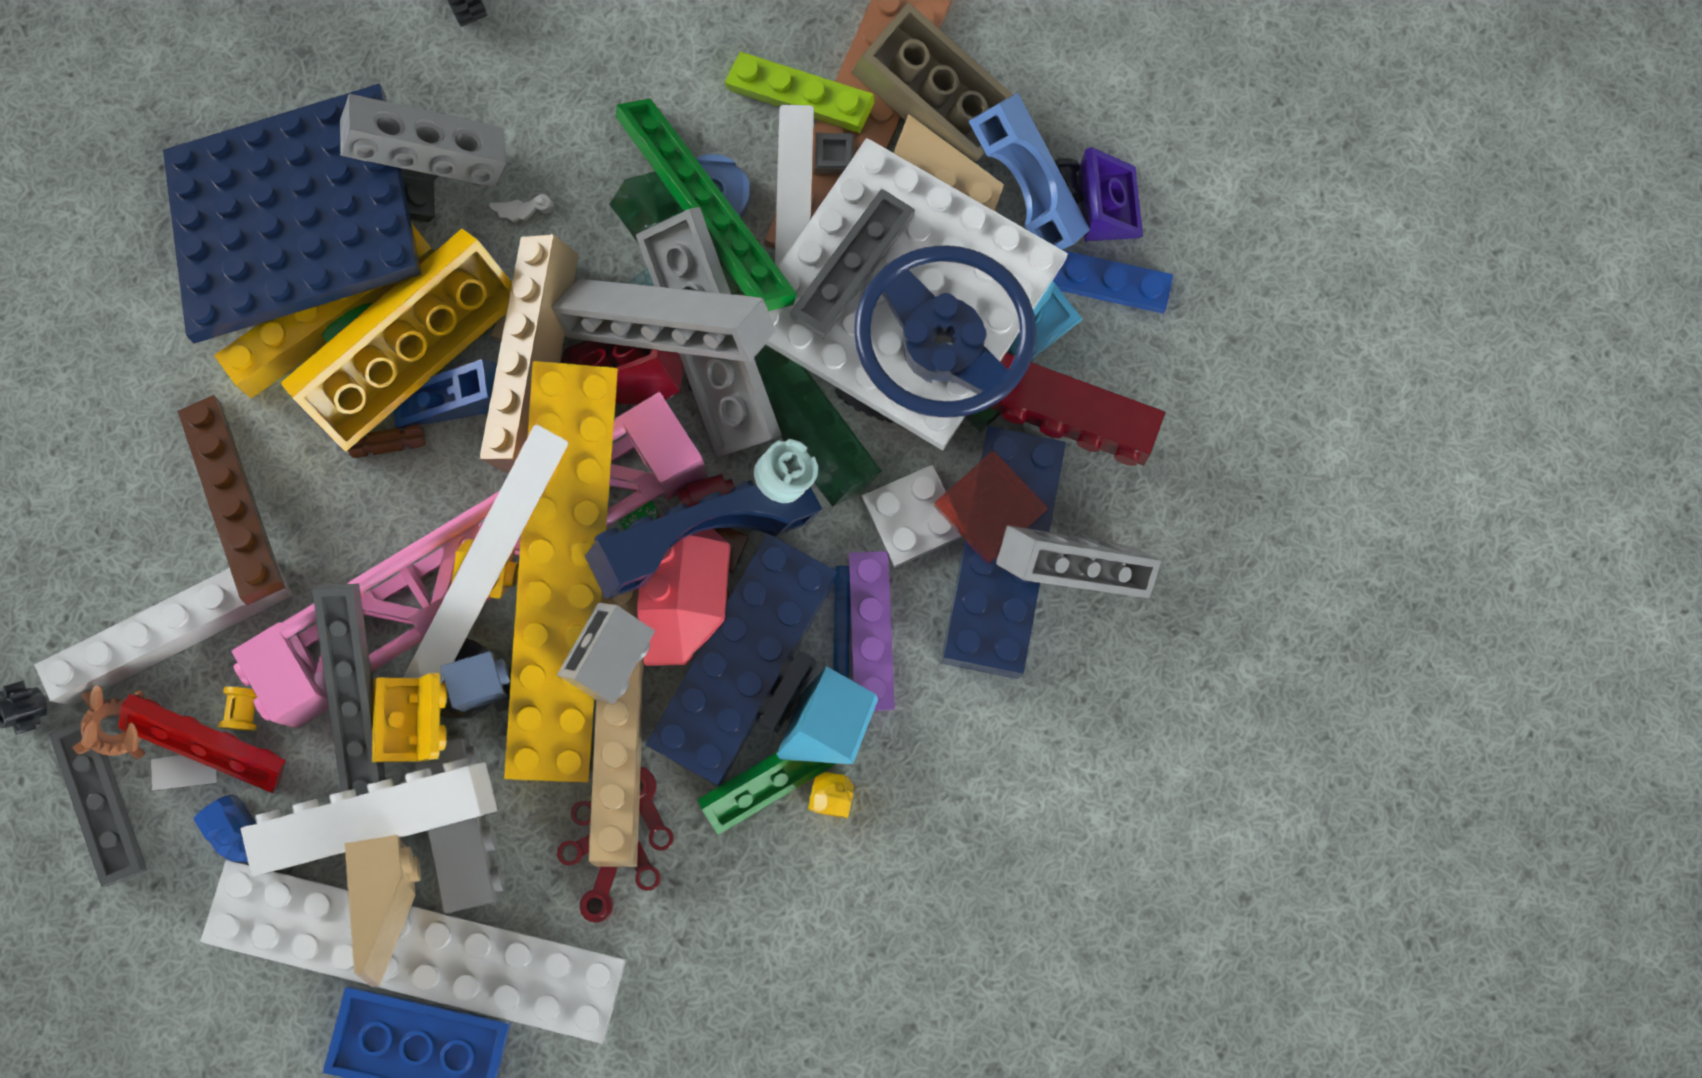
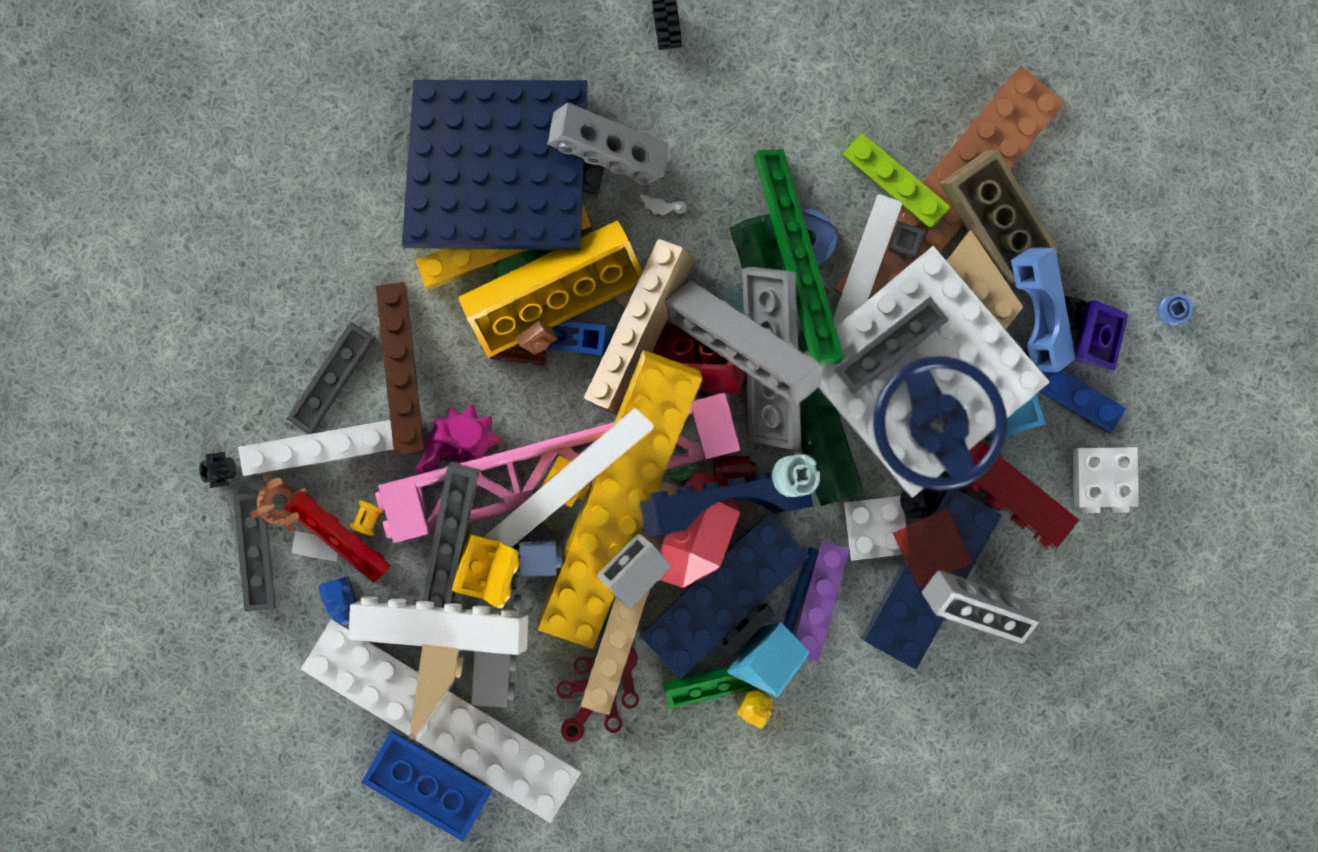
camera: 25 degrees right, 10 degrees up
(149, 543) = (331, 378): none -> dark grey tile
(329, 561) = (457, 438): none -> dark pink head
(400, 405) = (536, 338): none -> nougat plate
(954, 461) = (919, 504): none -> black gear
(1179, 362) = (1105, 479): none -> white brick
(1183, 147) = (1171, 313): none -> medium blue wheel

